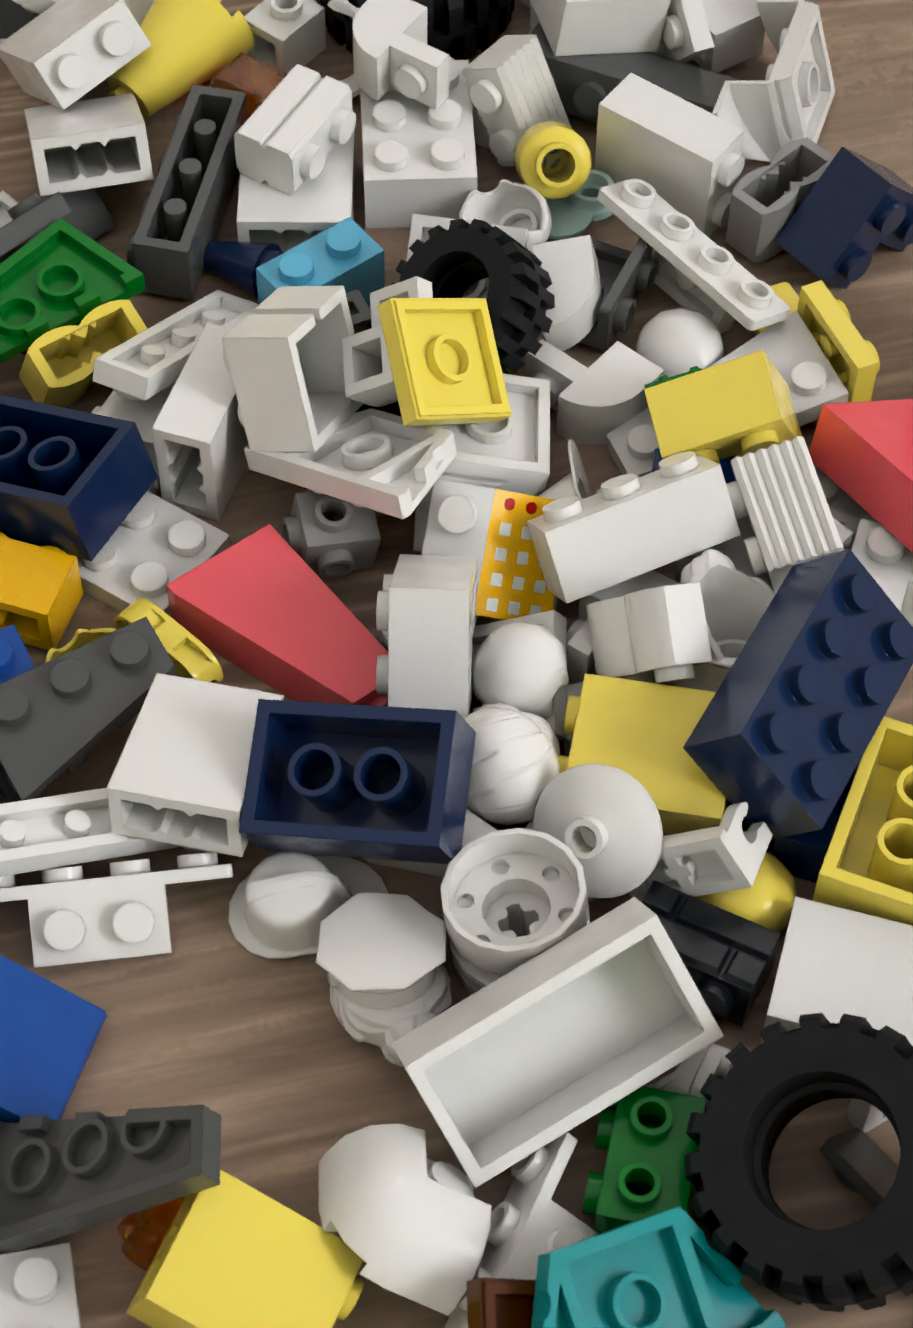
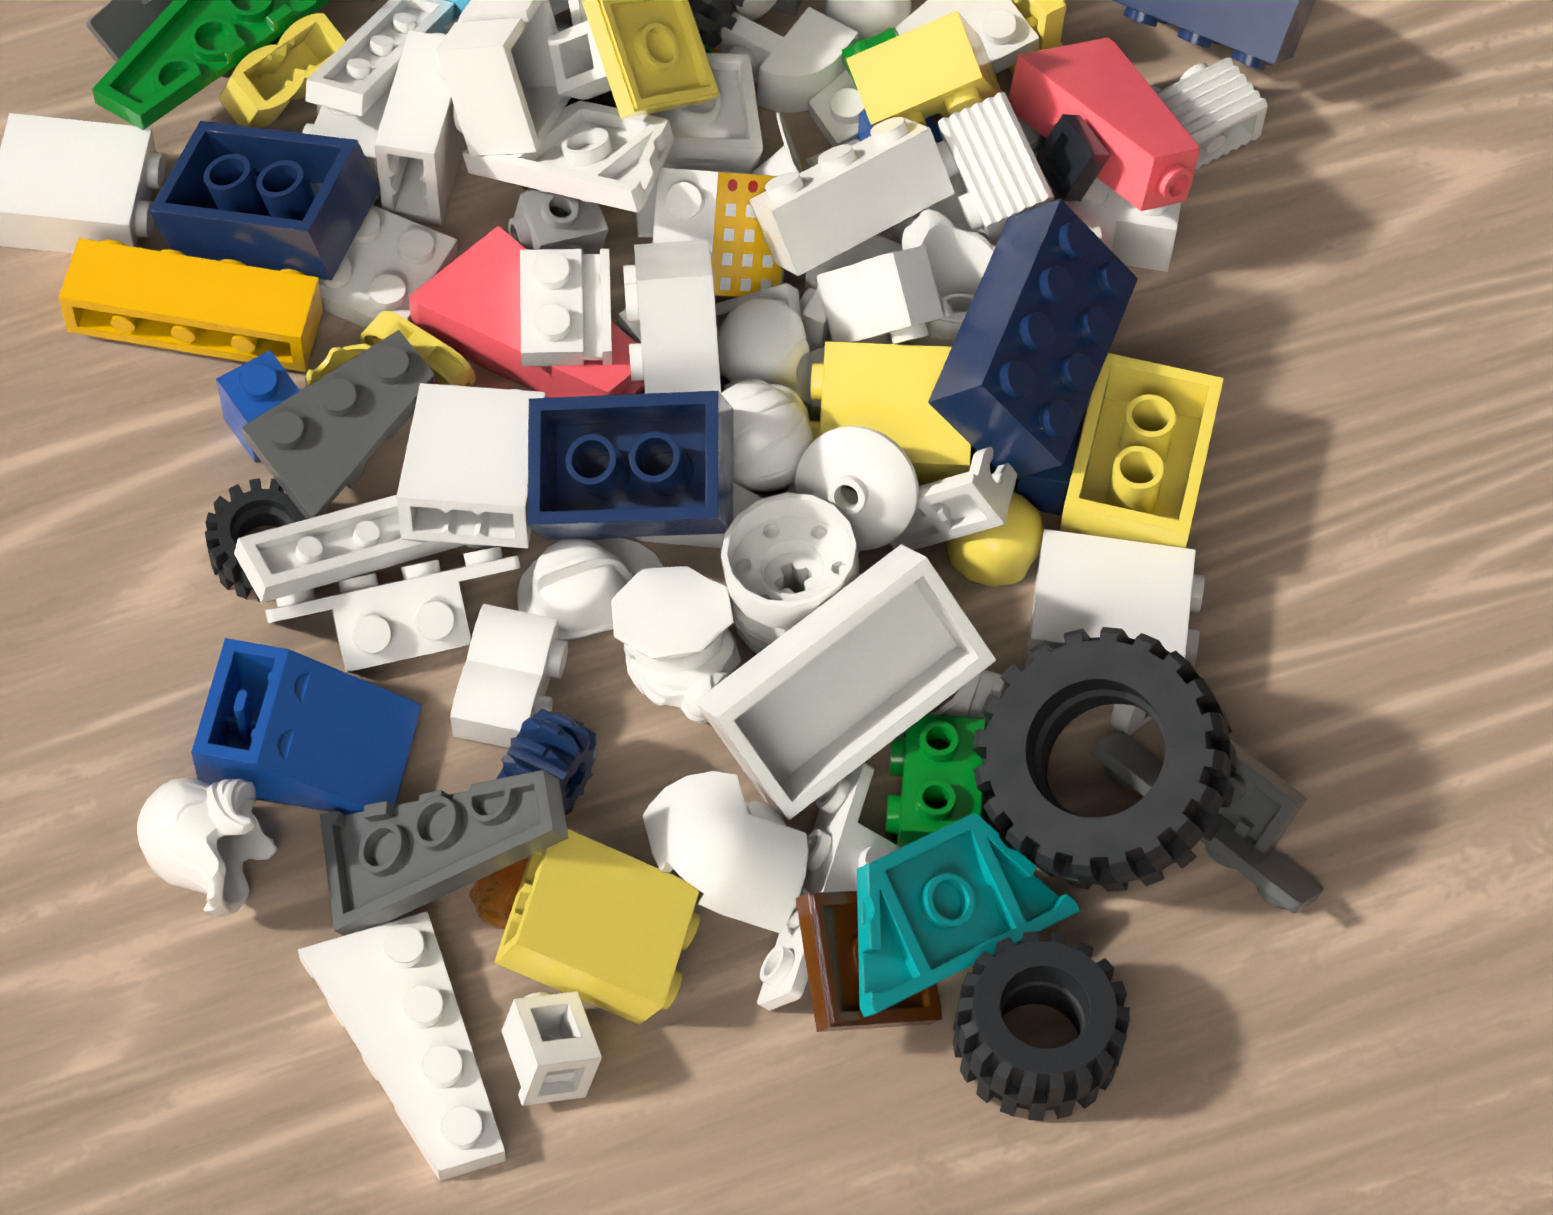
camera: 10 degrees left, 5 degrees up
(199, 993) = (506, 674): none -> white brick
(234, 1082) = (557, 746): none -> dark blue gear
(321, 612) = (565, 307): none -> white plate
(719, 949) = (984, 584): black brick -> none
(867, 511) = (1072, 157): none -> black plate

